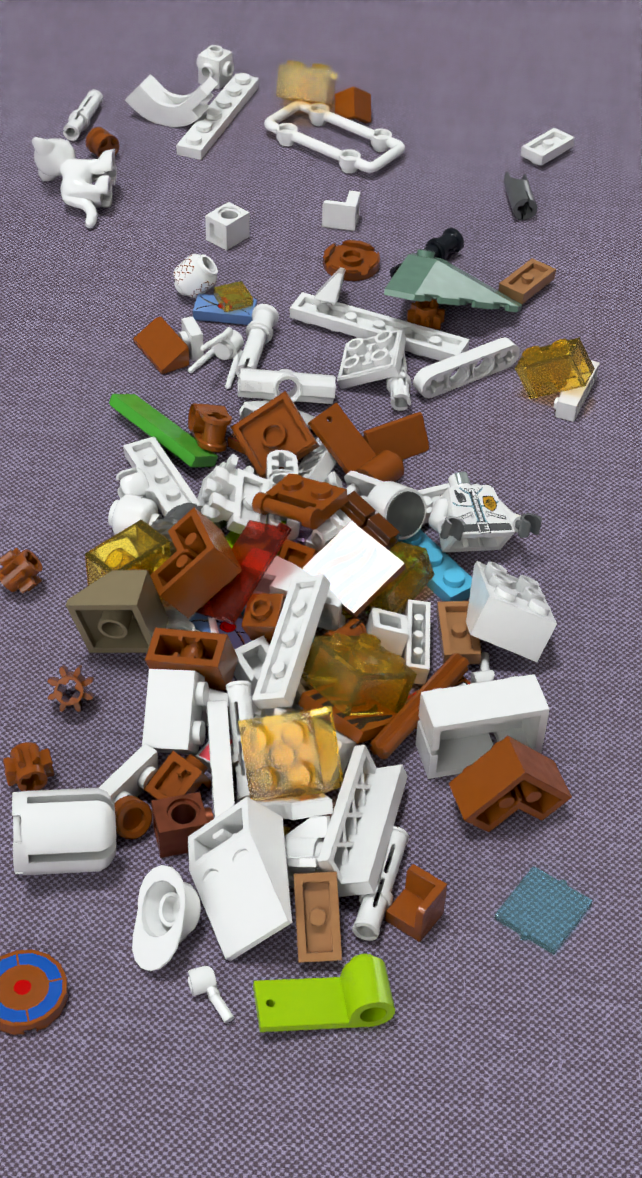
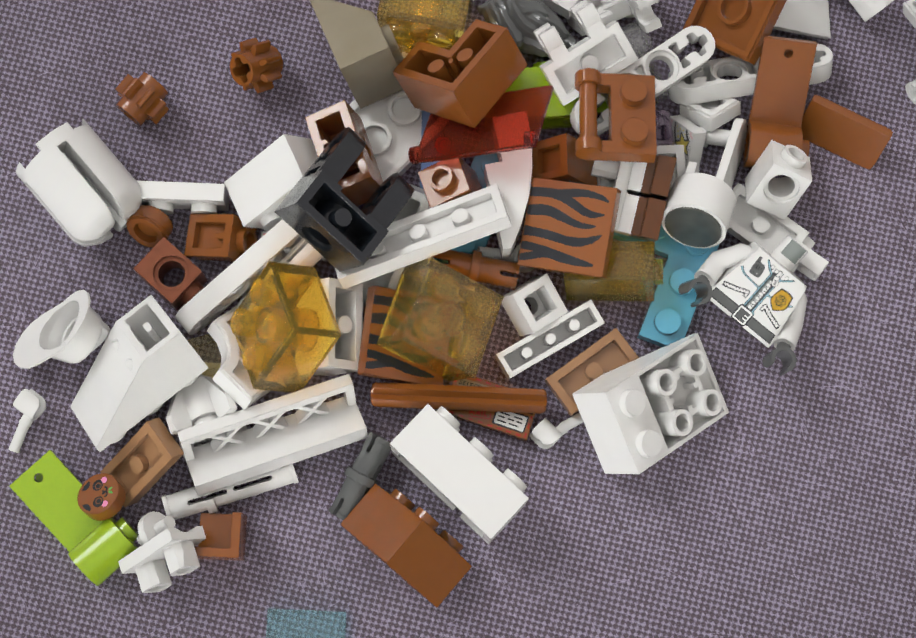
camera: 55 degrees right, 35 degrees up
(237, 658) = (329, 218): none -> black brick
(324, 960) = (101, 497): none -> dark orange tile
(406, 467) = (778, 194): none -> white brick
(406, 917) = (159, 547): none -> white hips
(435, 794) = (361, 475): none -> dark grey pin

